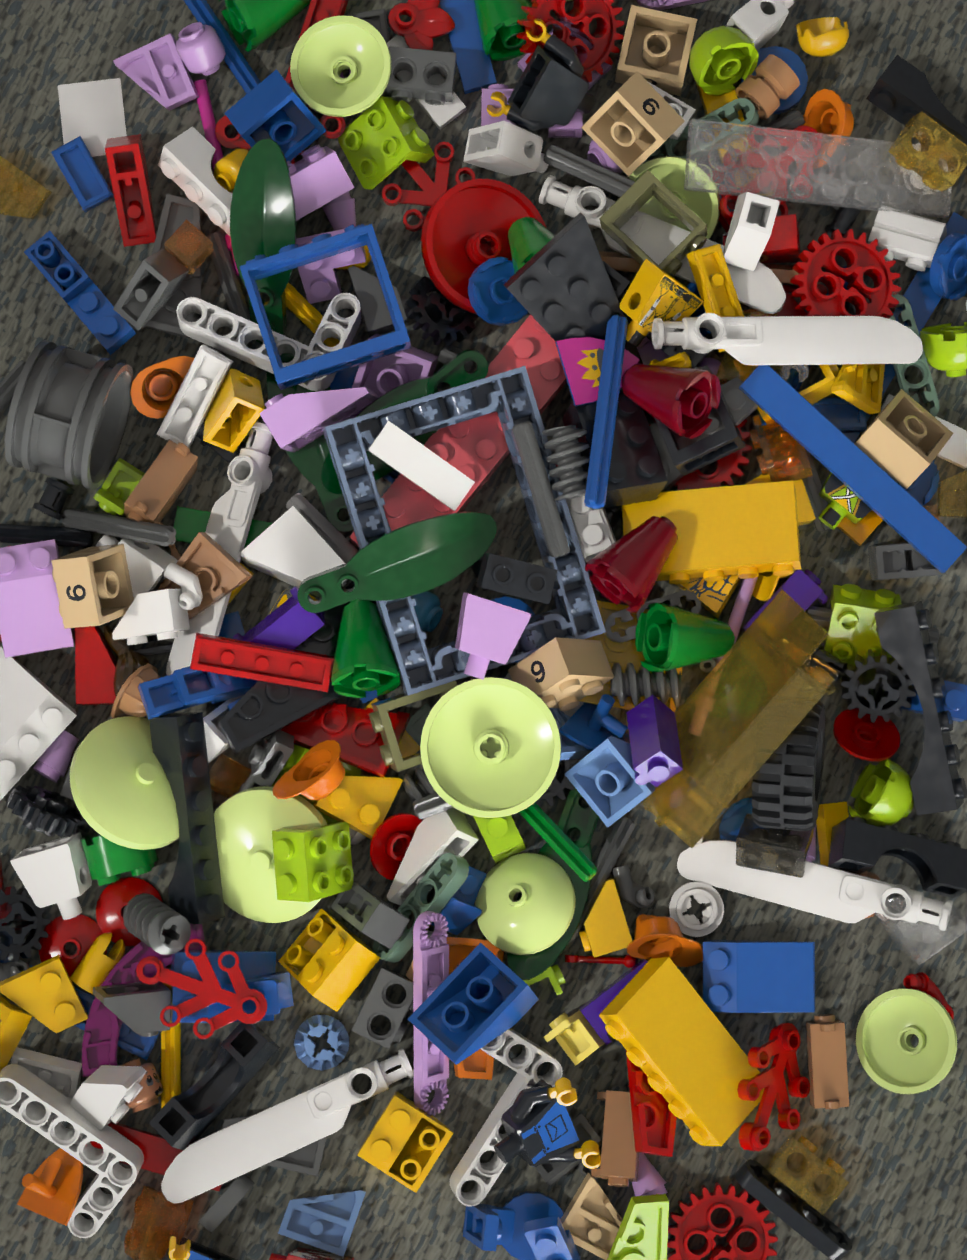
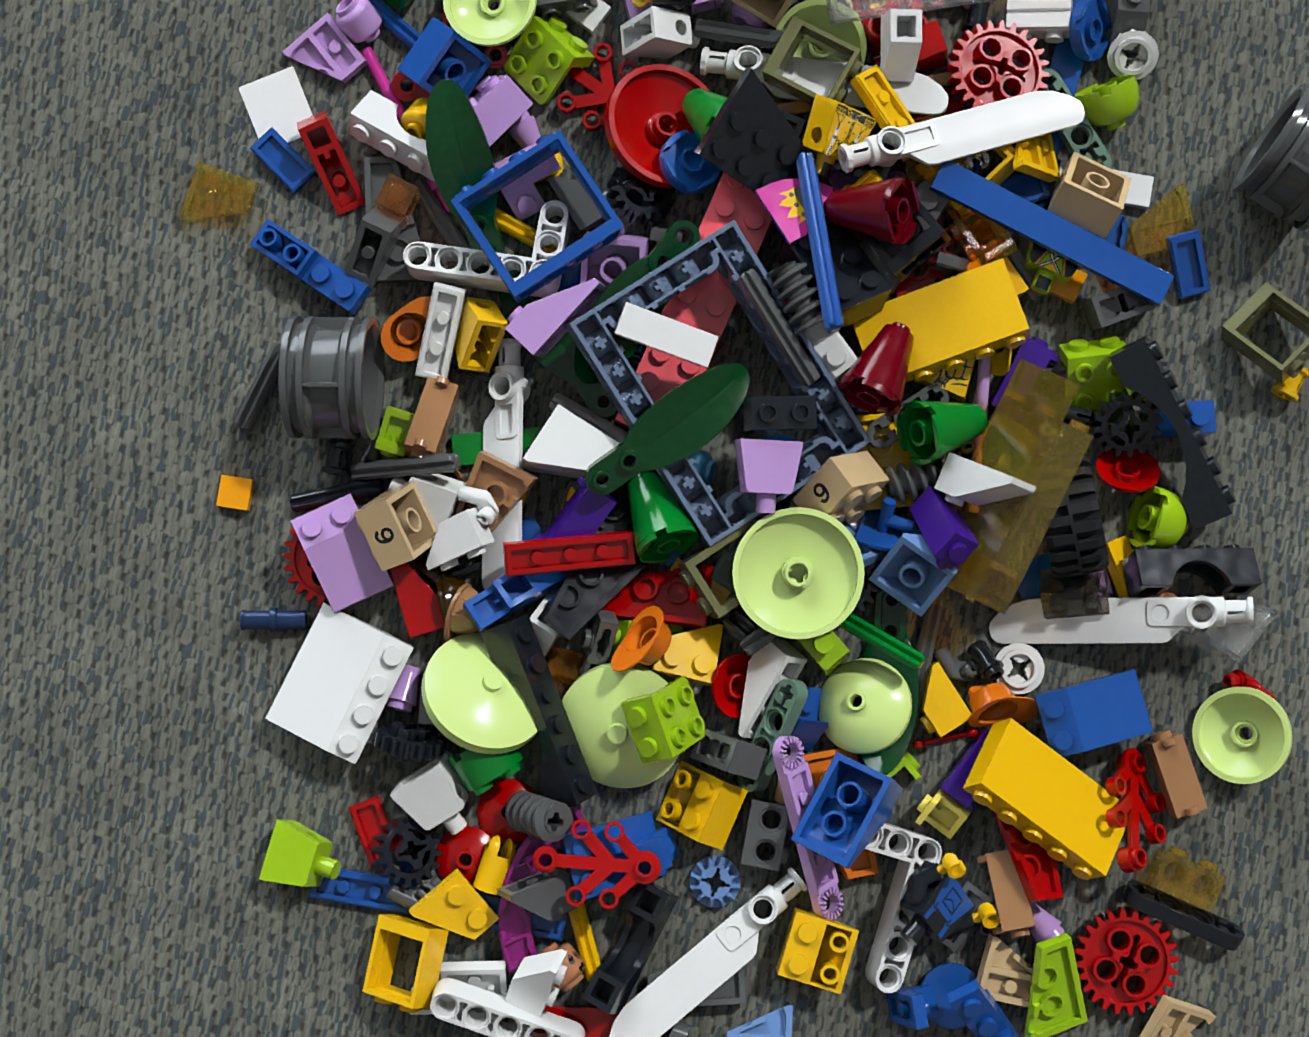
camera: 10 degrees left, 0 degrees up
(666, 899) = (990, 667): none -> black pin
(699, 706) = (977, 483): none -> white slope
(737, 469) = (947, 263): none -> dark grey tile

